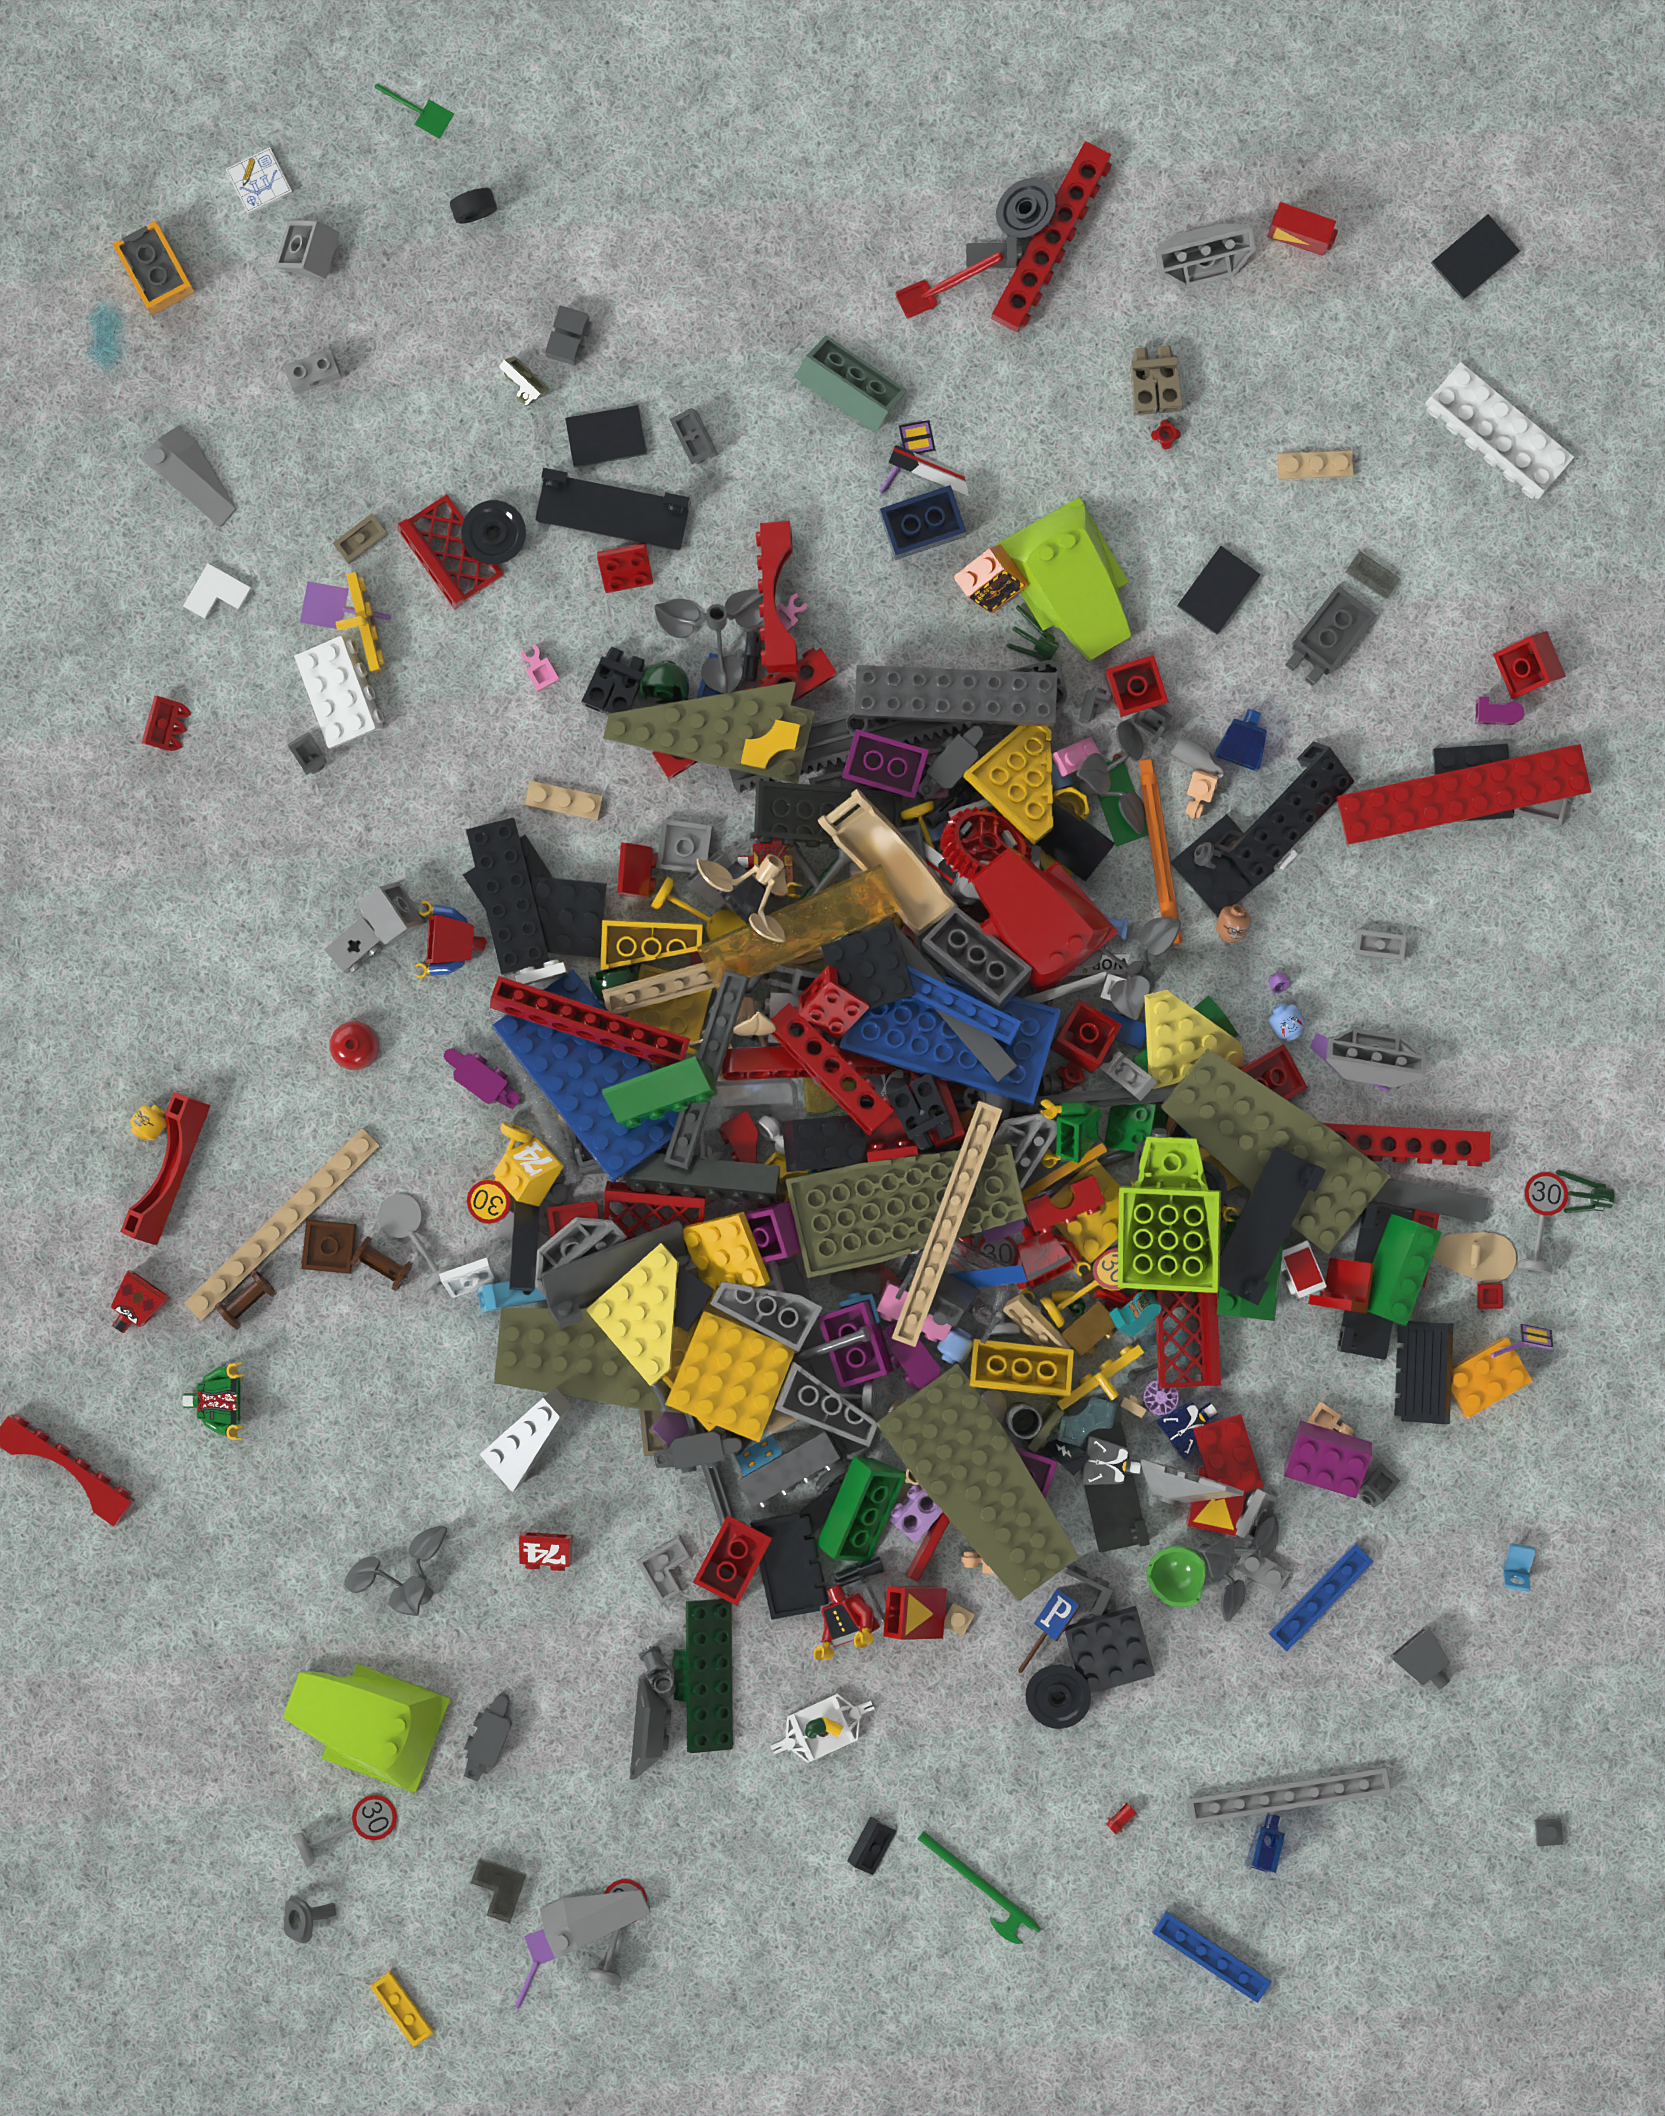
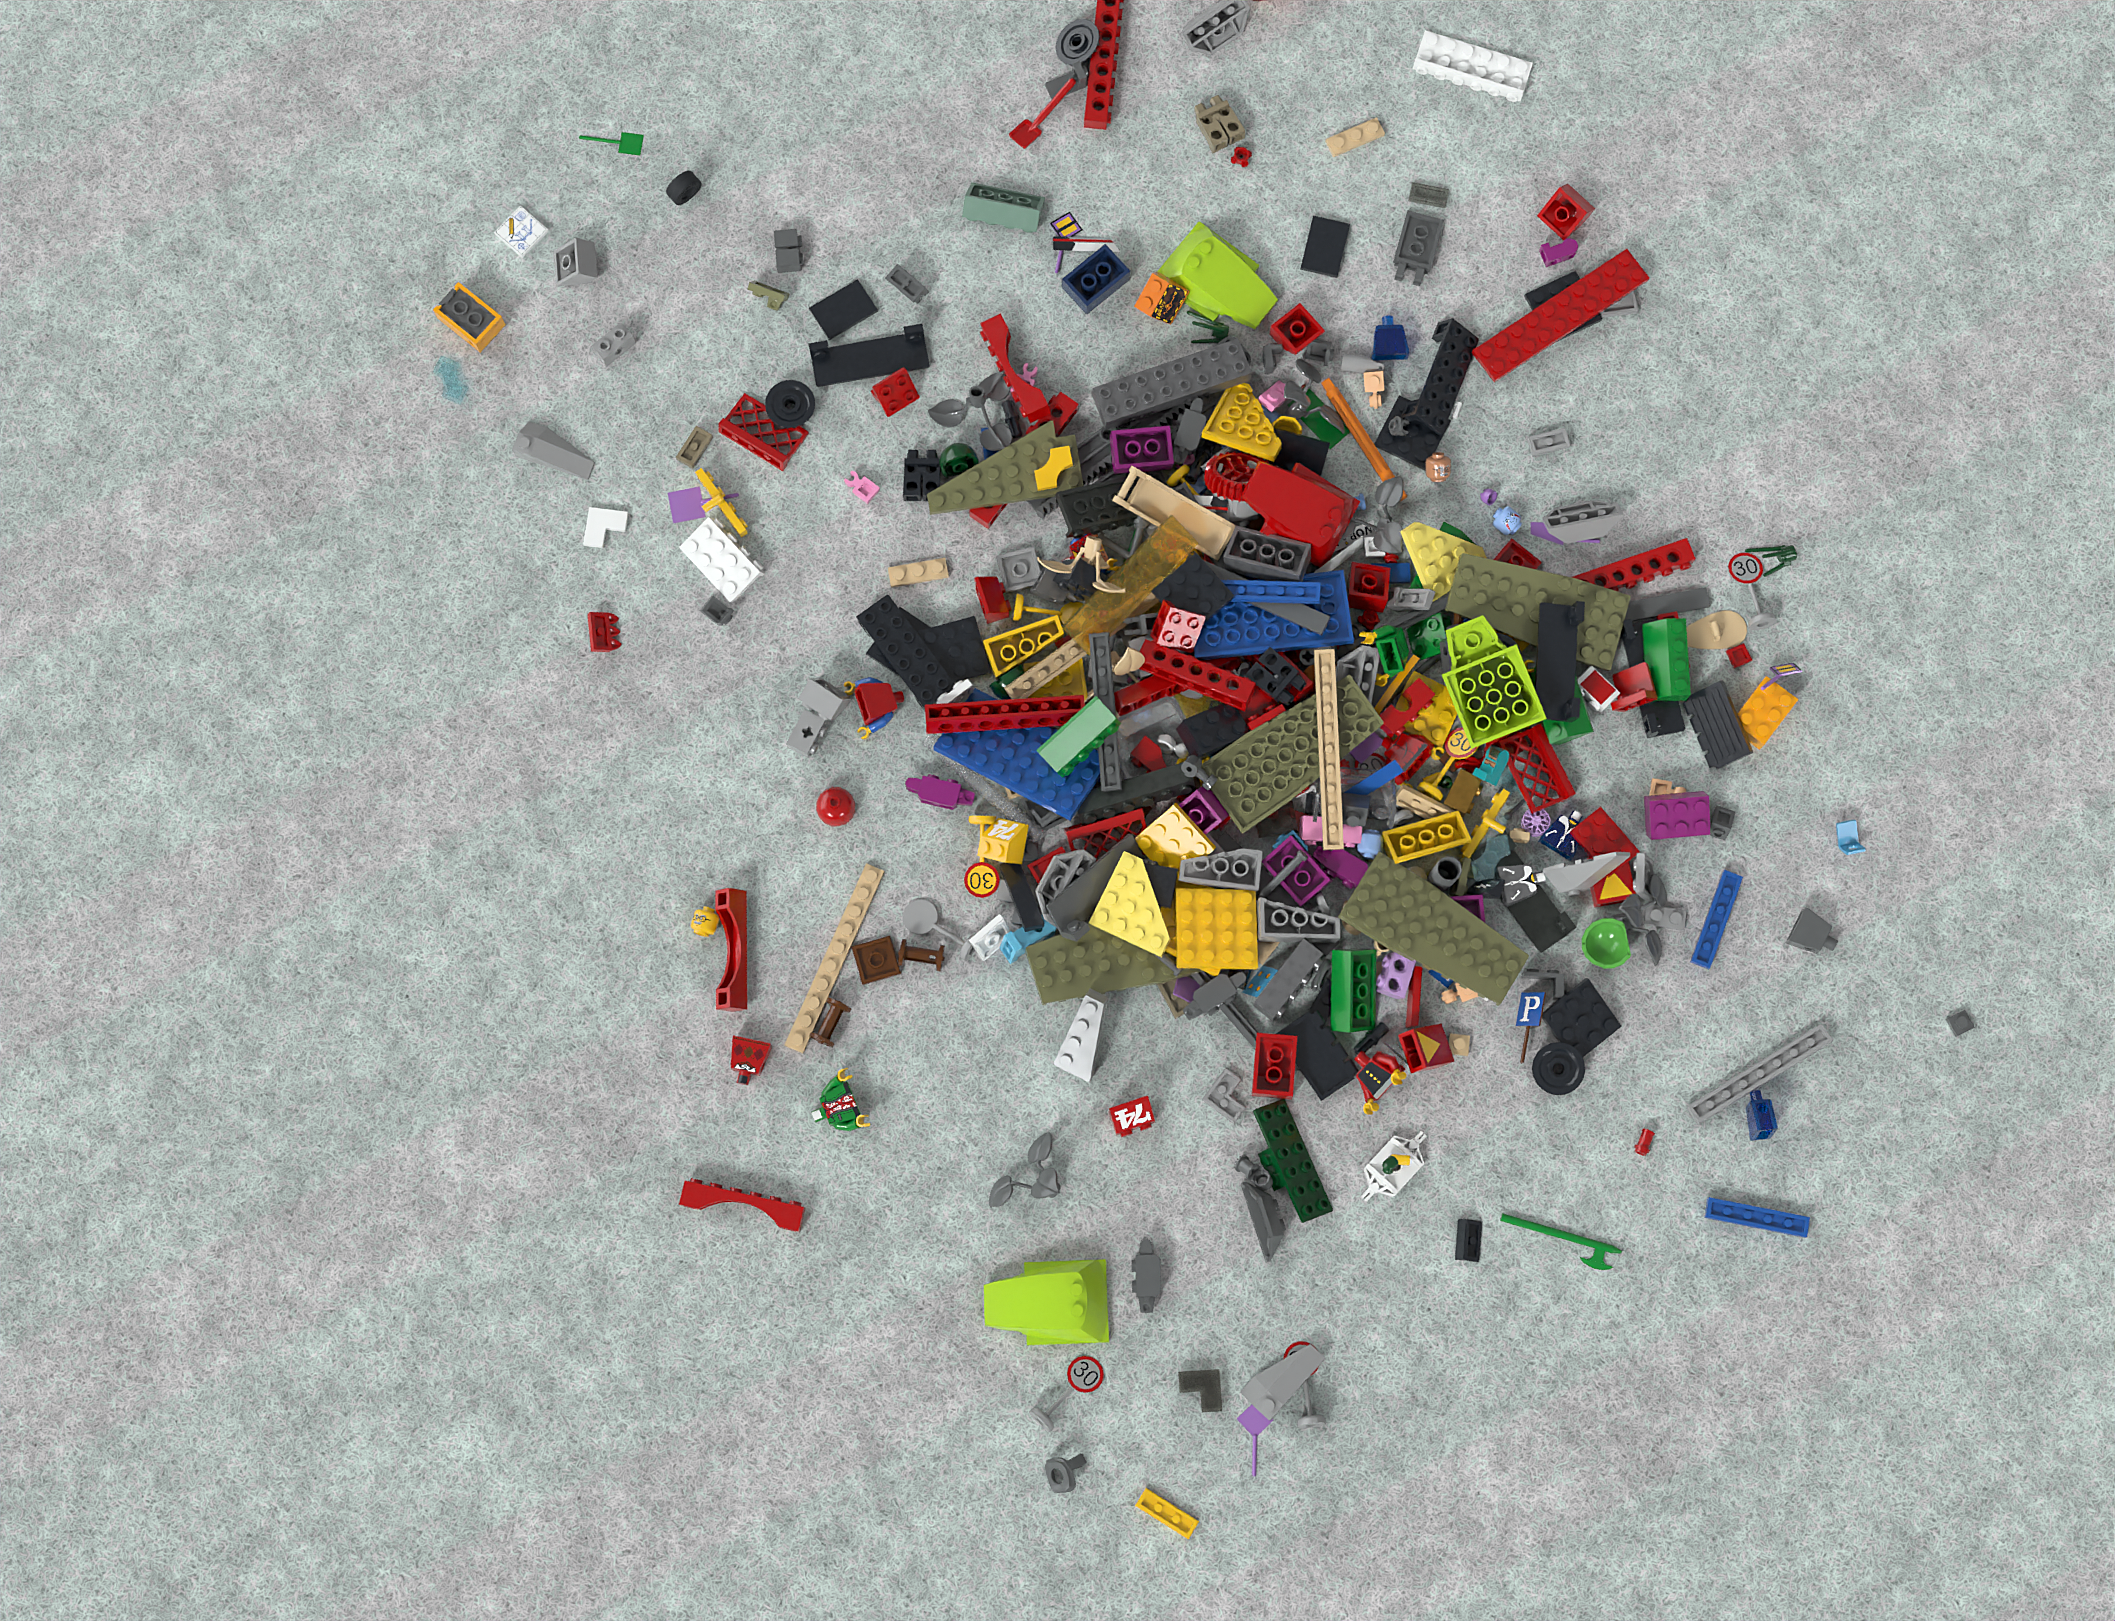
camera: 25 degrees left, 10 degrees down
(779, 1181) = (1192, 768): none -> dark grey leg

